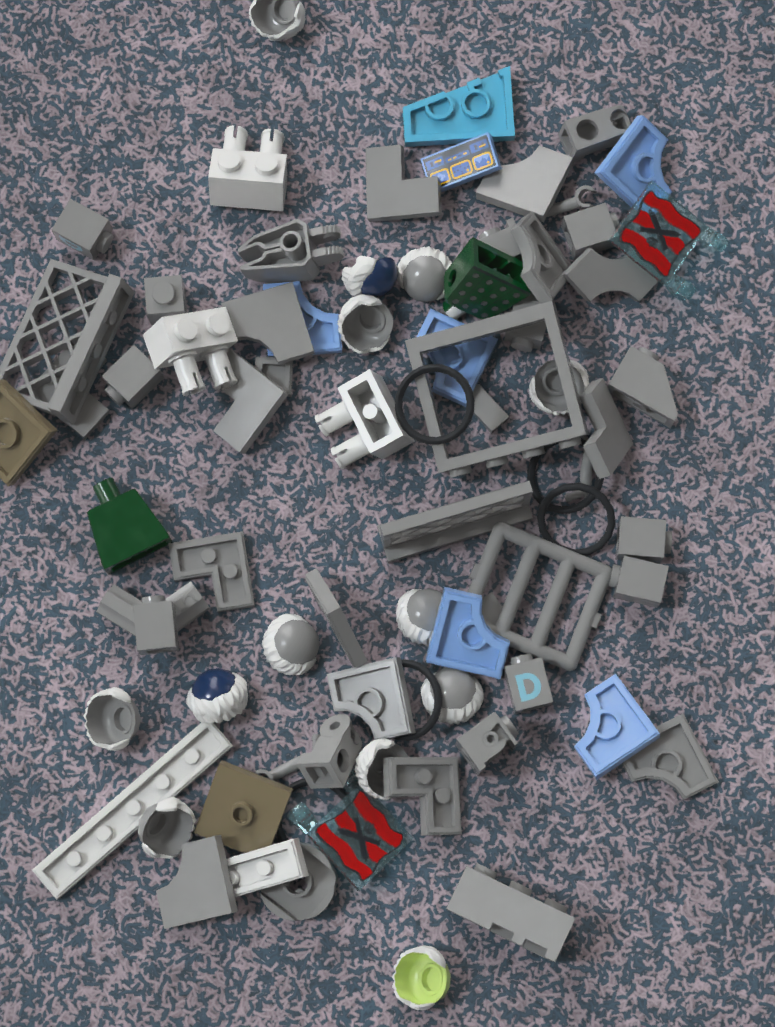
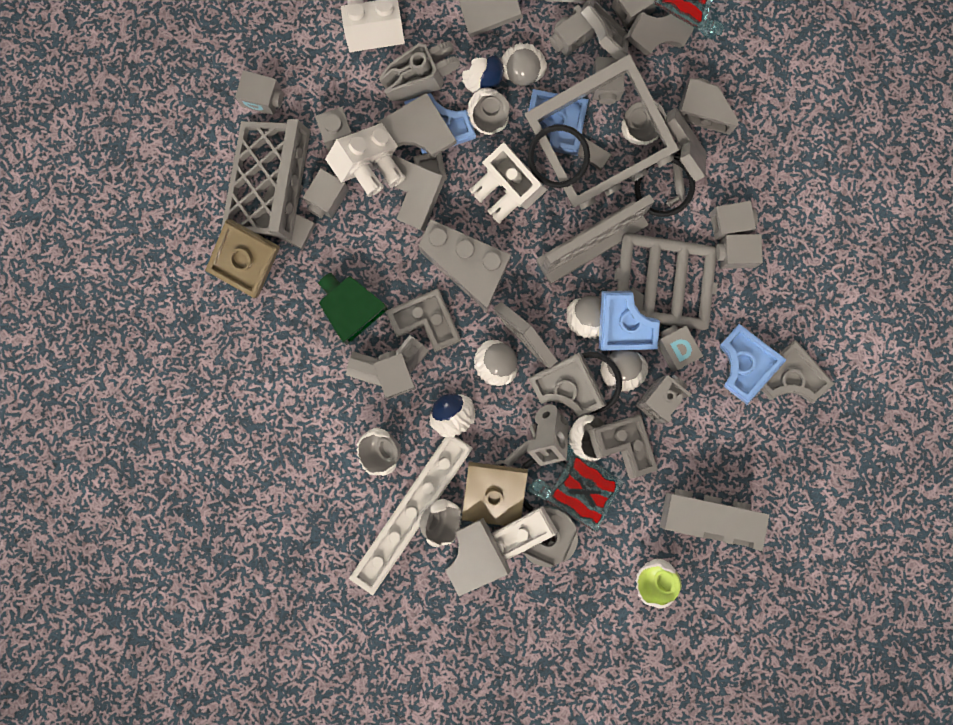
camera: 20 degrees left, 5 degrees up
(286, 506) = (466, 261): none -> light grey wedge
(483, 282) = (569, 56): dark green torso -> none
(588, 489) = (699, 196): black piece -> none

